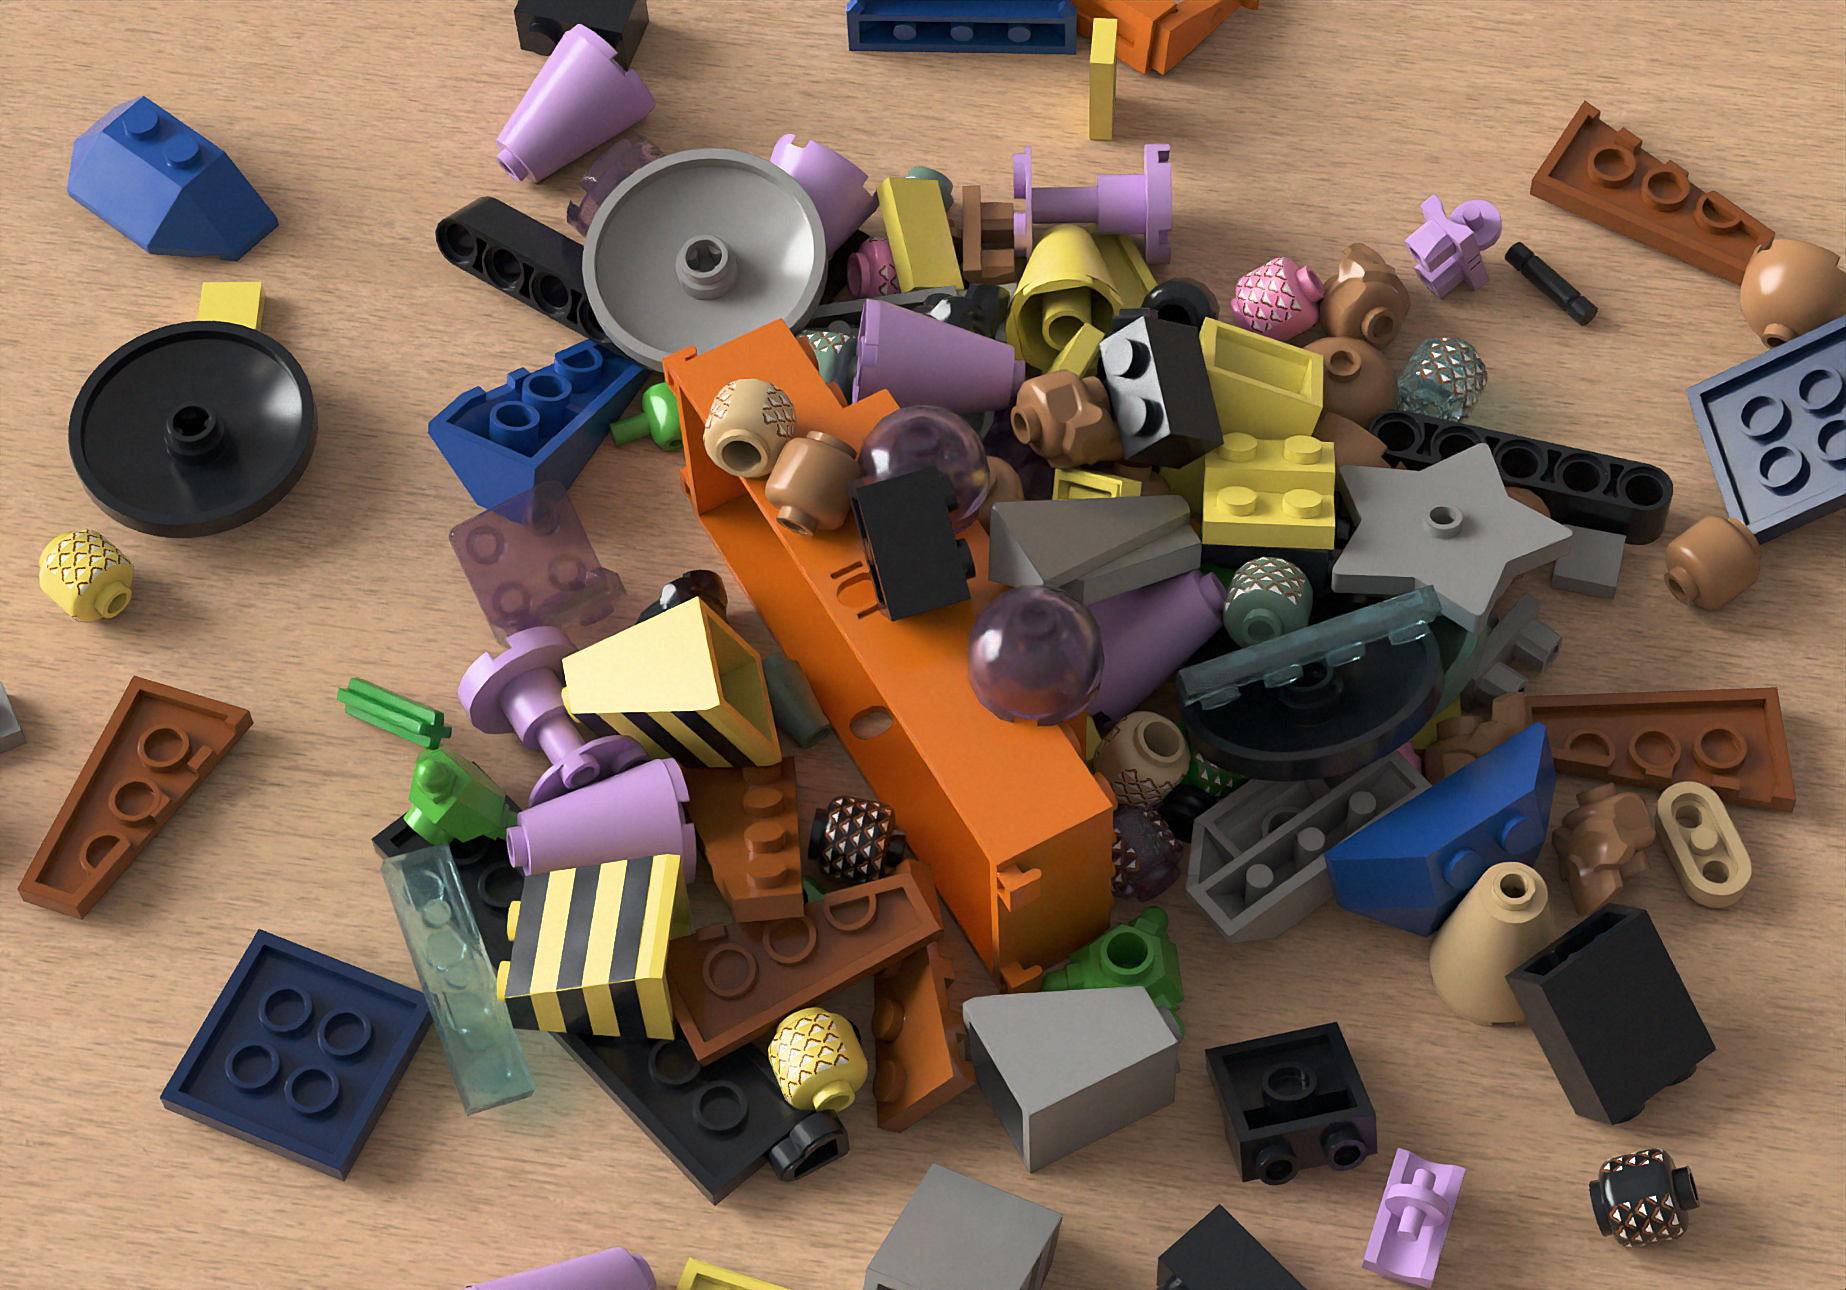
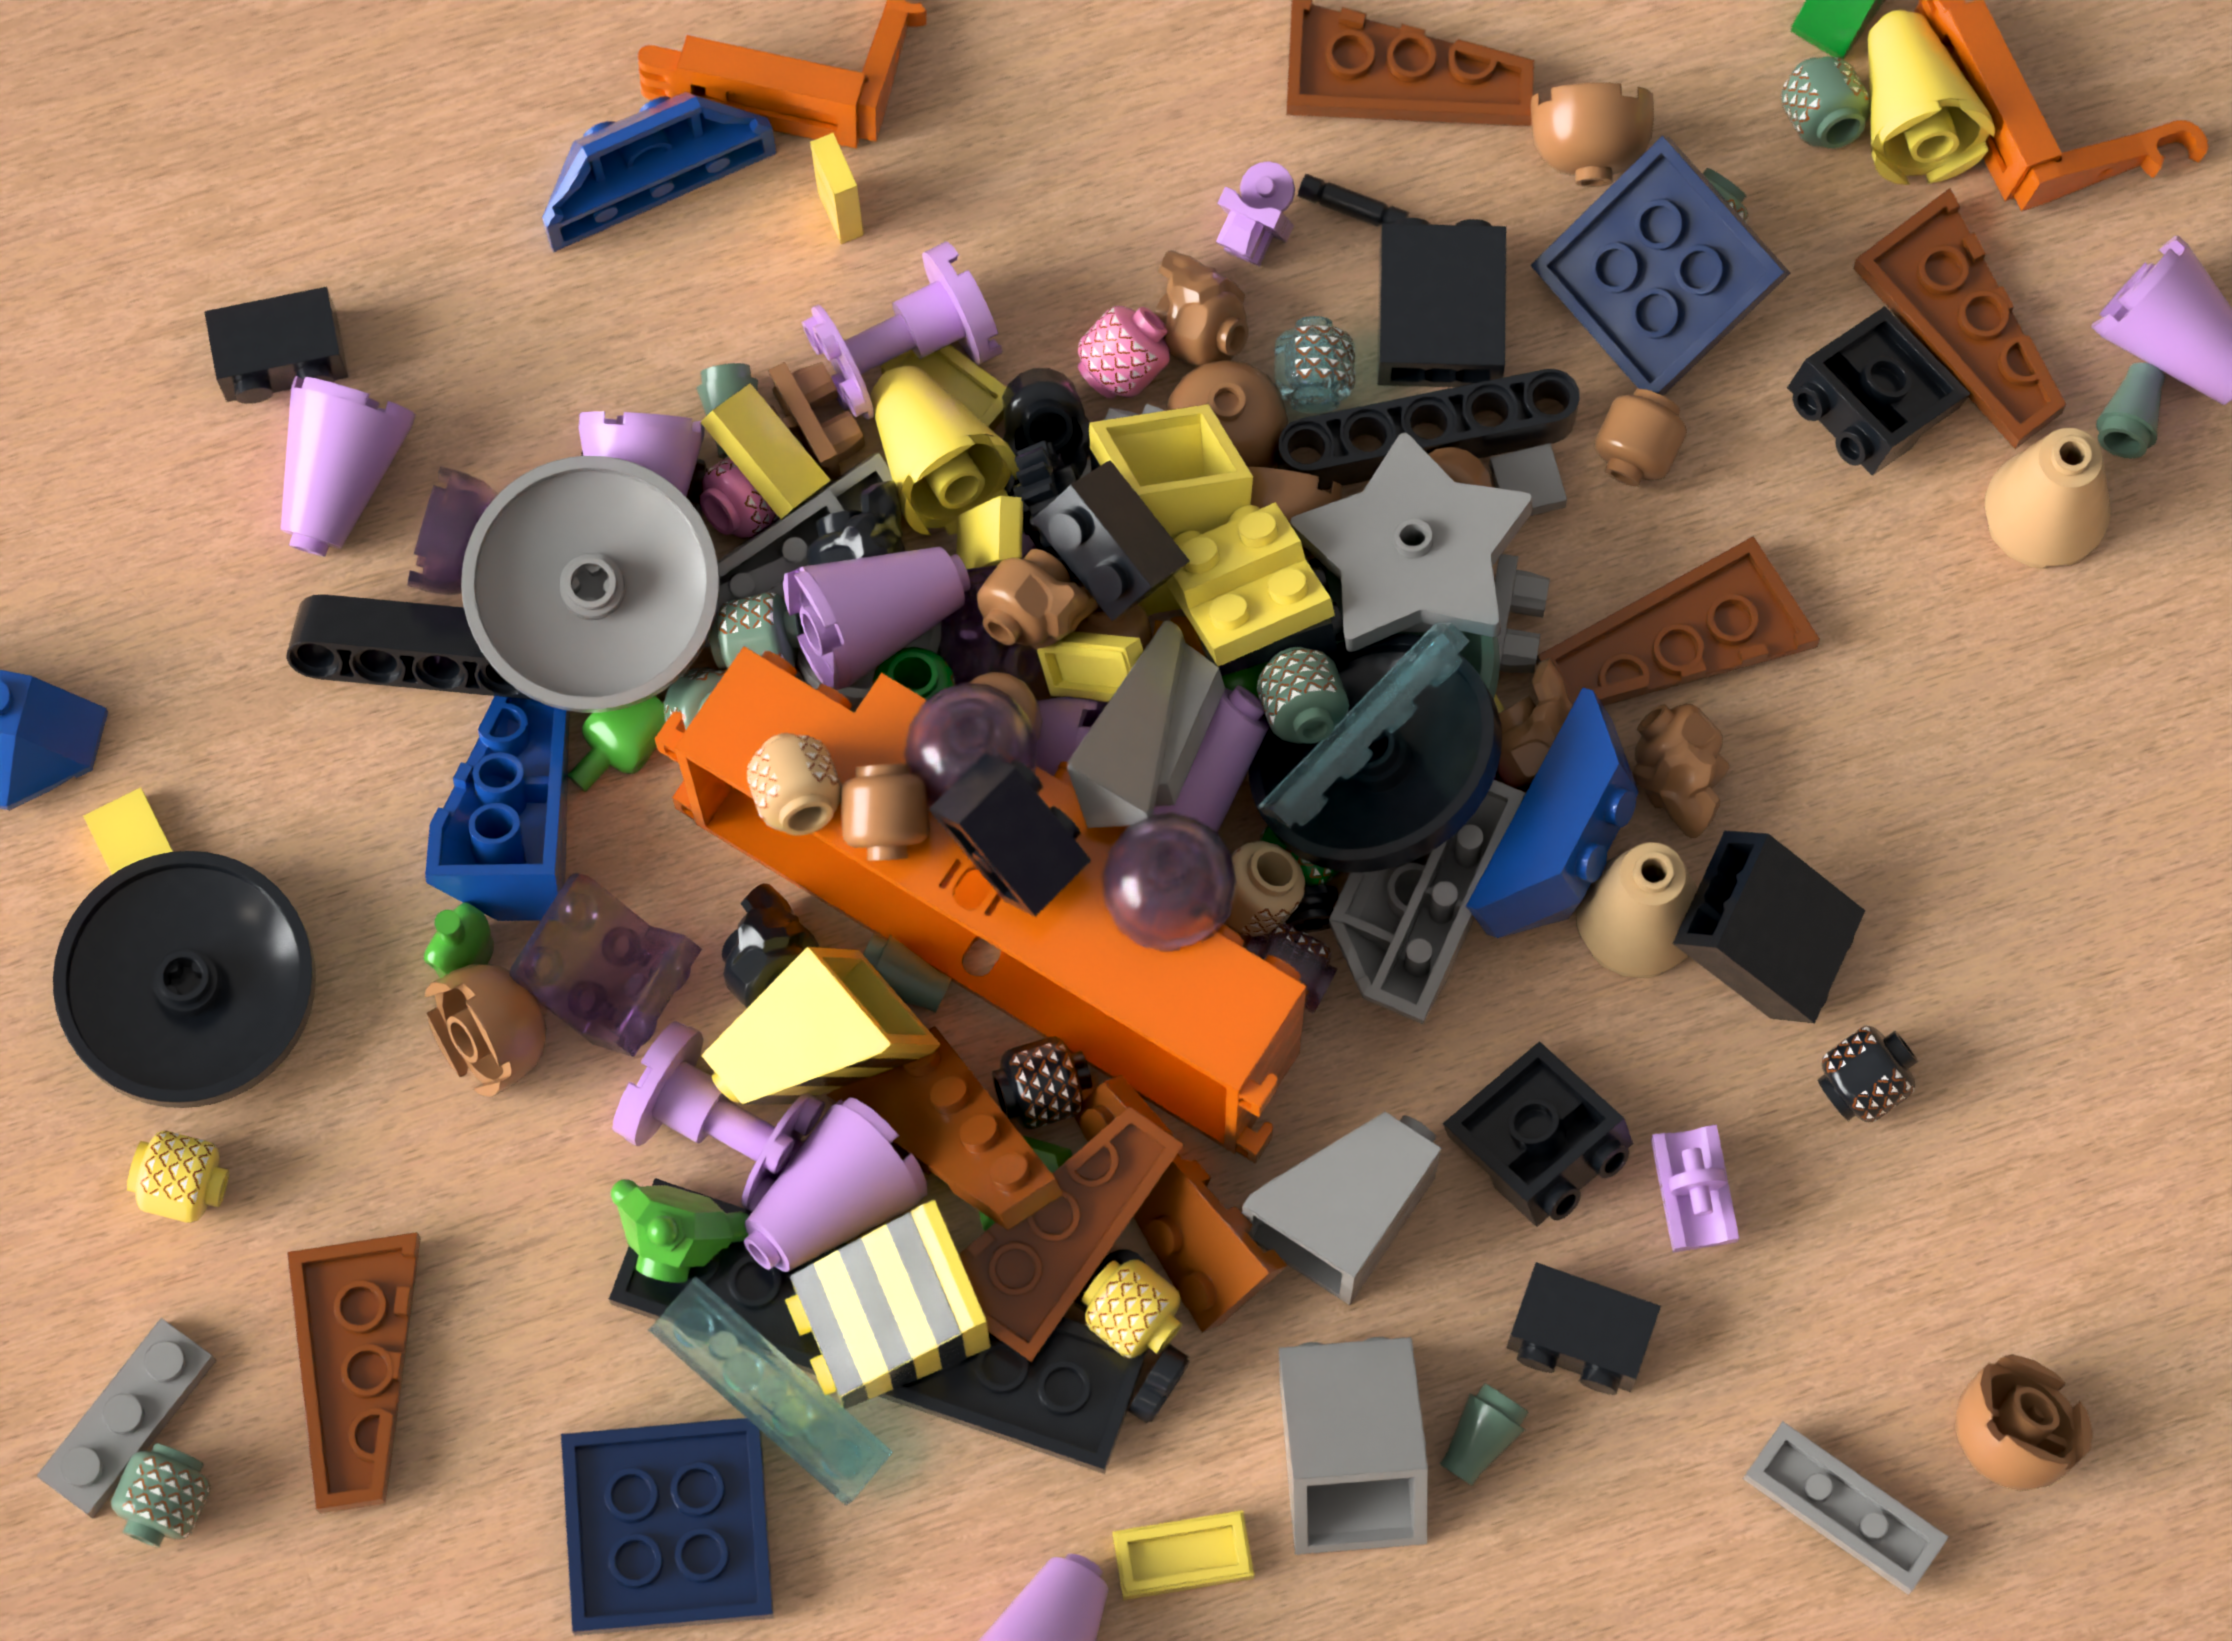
camera: 30 degrees left, 15 degrees up
(394, 713) = (562, 1173): axle -> none
(415, 575) = (487, 1025): none -> medium nougat cylinder
(430, 502) = (460, 940): none -> bright green piece
(1126, 958) = (1336, 1086): bright green rock -> none
(1586, 379) = (1441, 303): none -> black brick
(1703, 849) = (1765, 715): tan plate -> none

